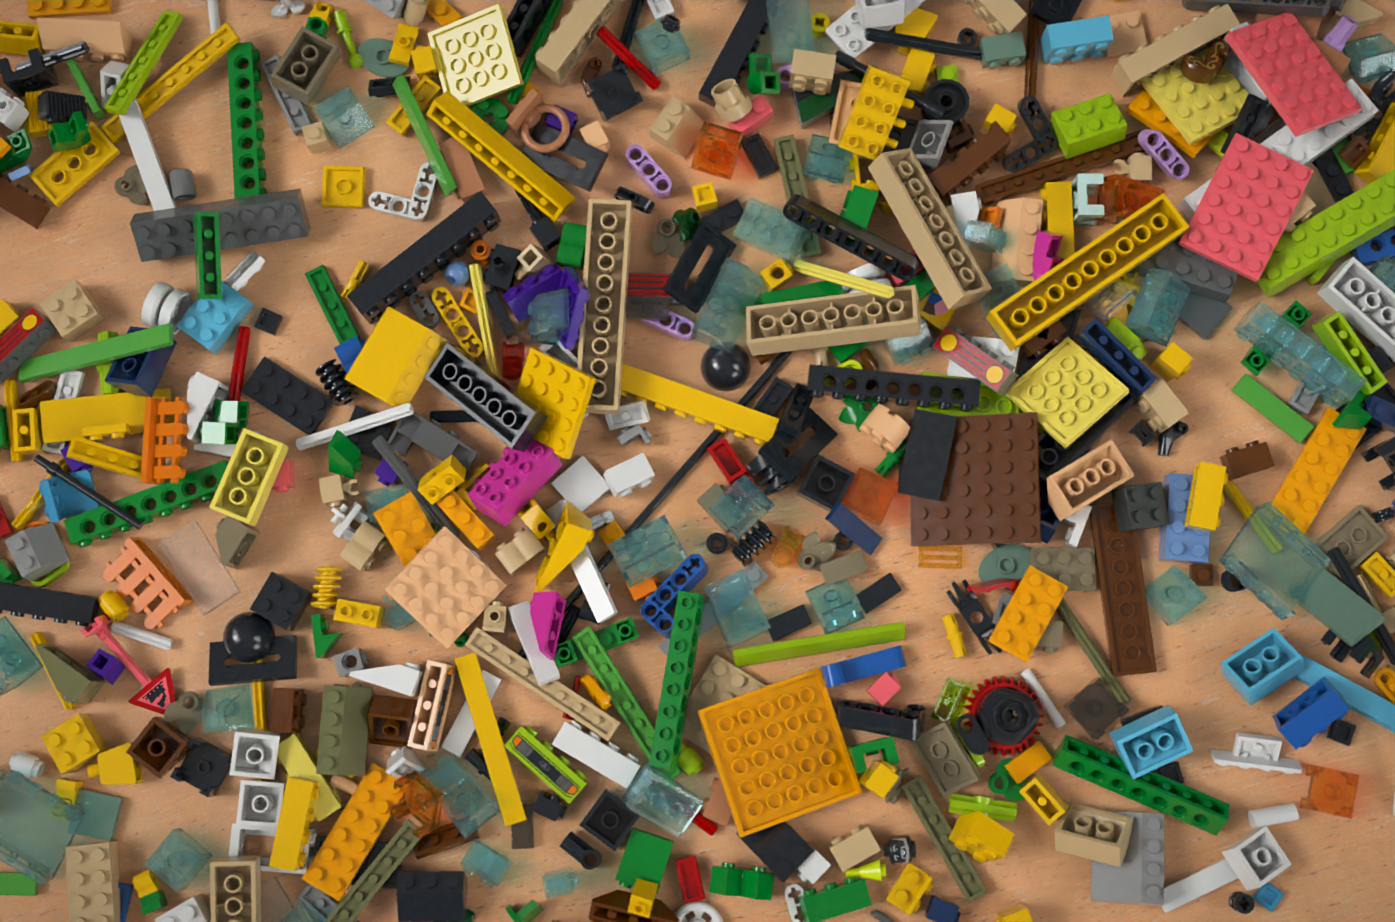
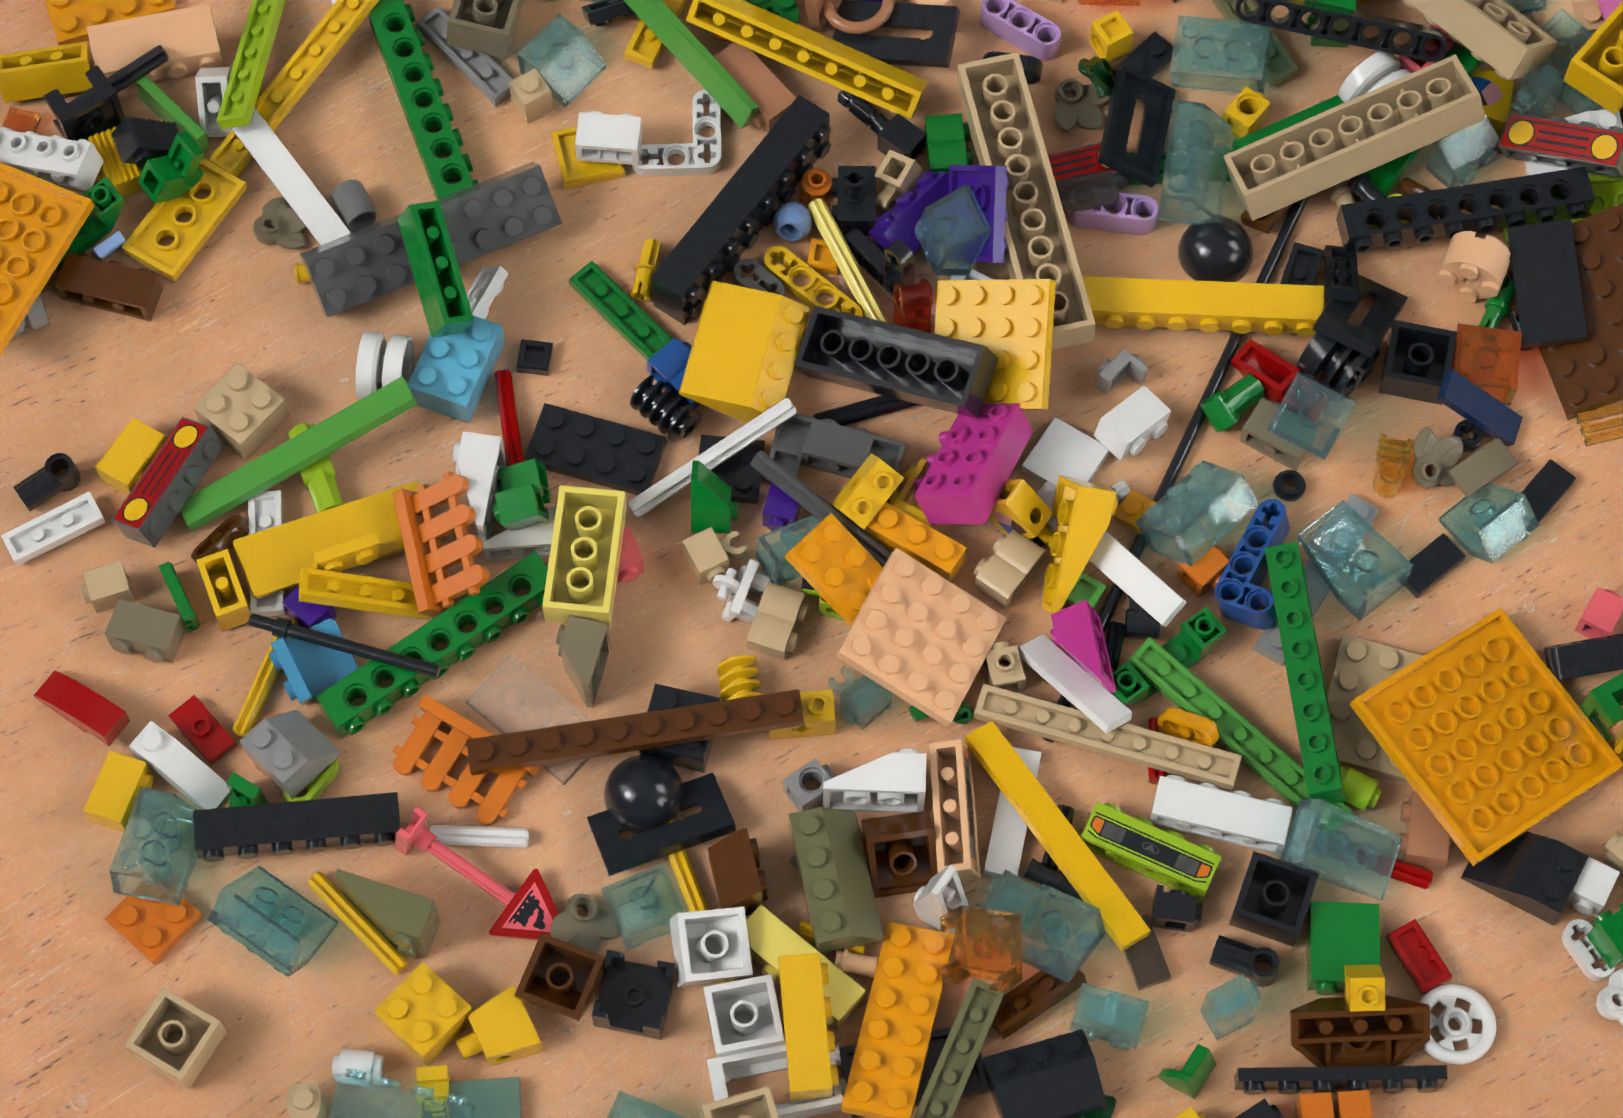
camera: 20 degrees left, 15 degrees down
(11, 397) = (193, 587): yellow axle -> none
(105, 666) = (443, 885): dark purple brick -> none
(113, 606) = (427, 799): yellow brick -> none
(140, 372) = (370, 464): dark blue slope -> none
(248, 602) = (635, 732): none -> reddish brown plate
(322, 642) = (759, 767): green slope -> none
(354, 183) = (608, 138): none -> white brick
(563, 582) = (1088, 589): none -> bright green plate
(630, 414) = (1107, 342): white plate -> none
(692, 479) = (1226, 406): none -> green piece
(743, 882) = (1511, 935): green brick -> none
(752, 542) = (1341, 466): black piece -> none
(819, 644) = (1486, 580): lime tile -> none
(835, 356) = (1365, 188): none -> black pin
(843, 279) = (1349, 81): light yellow axle -> none
(855, 411) = (1421, 262): green plate -> none
(863, 666) = (1539, 605): blue beam -> none
(970, 316) = (1540, 90): none -> clear light blue brick

